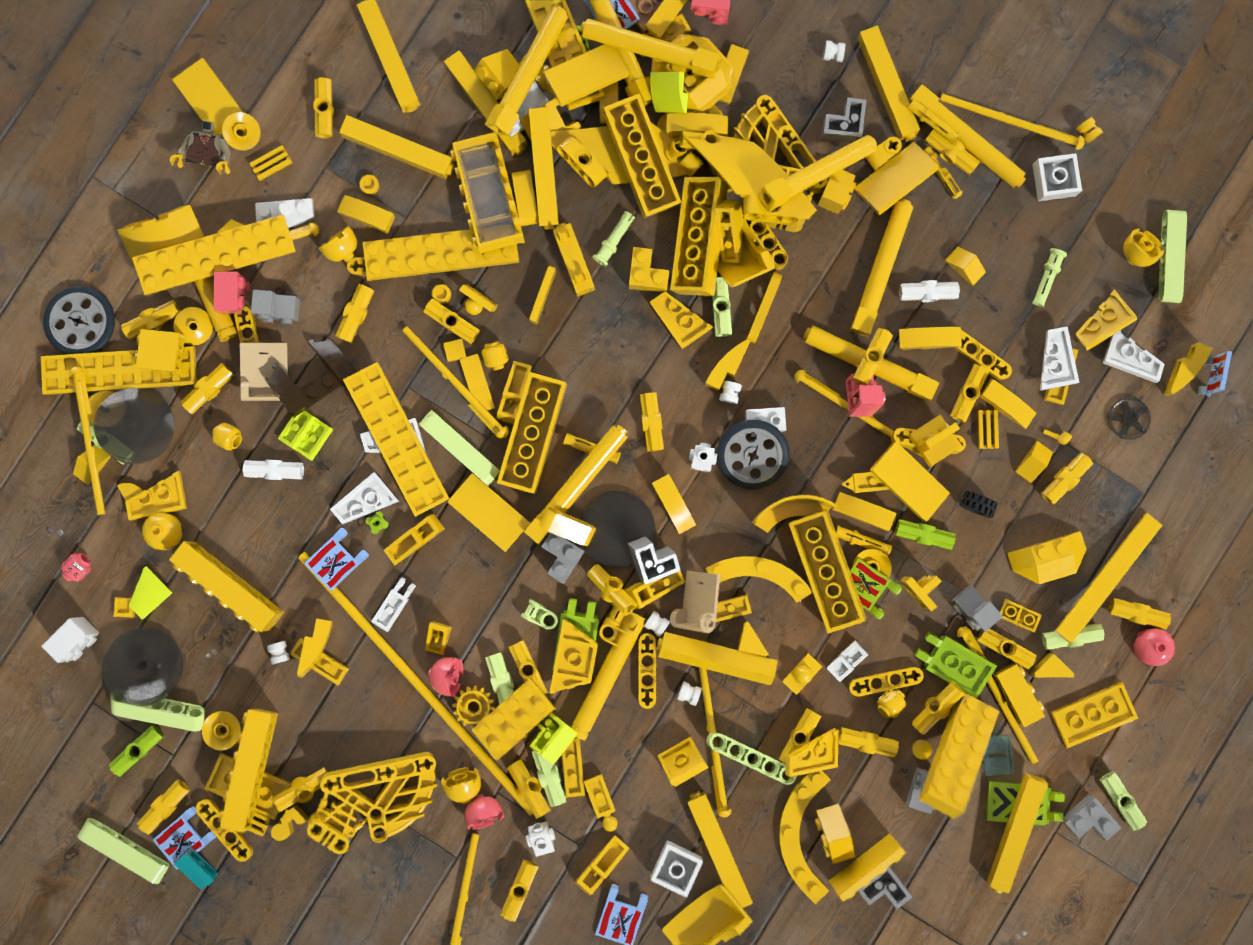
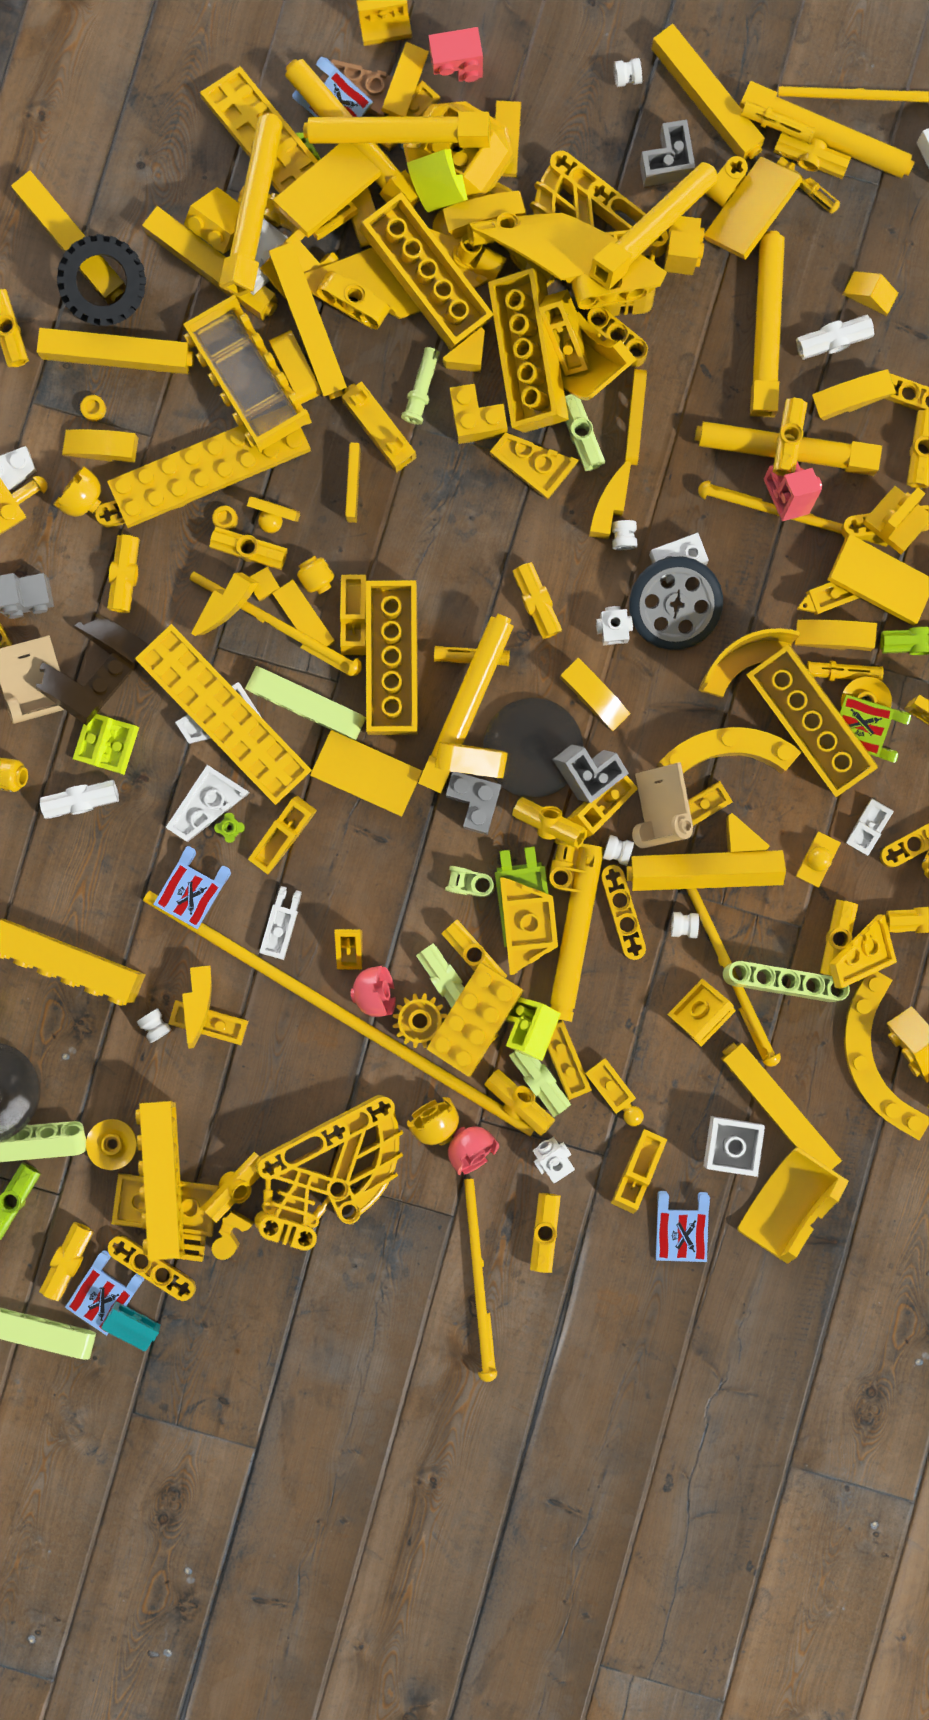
camera: 15 degrees left, 0 degrees up
(376, 100) = (125, 256): none -> black tyre
(422, 357) = (225, 603): none -> yellow slope
(654, 225) = (468, 354): none -> yellow slope

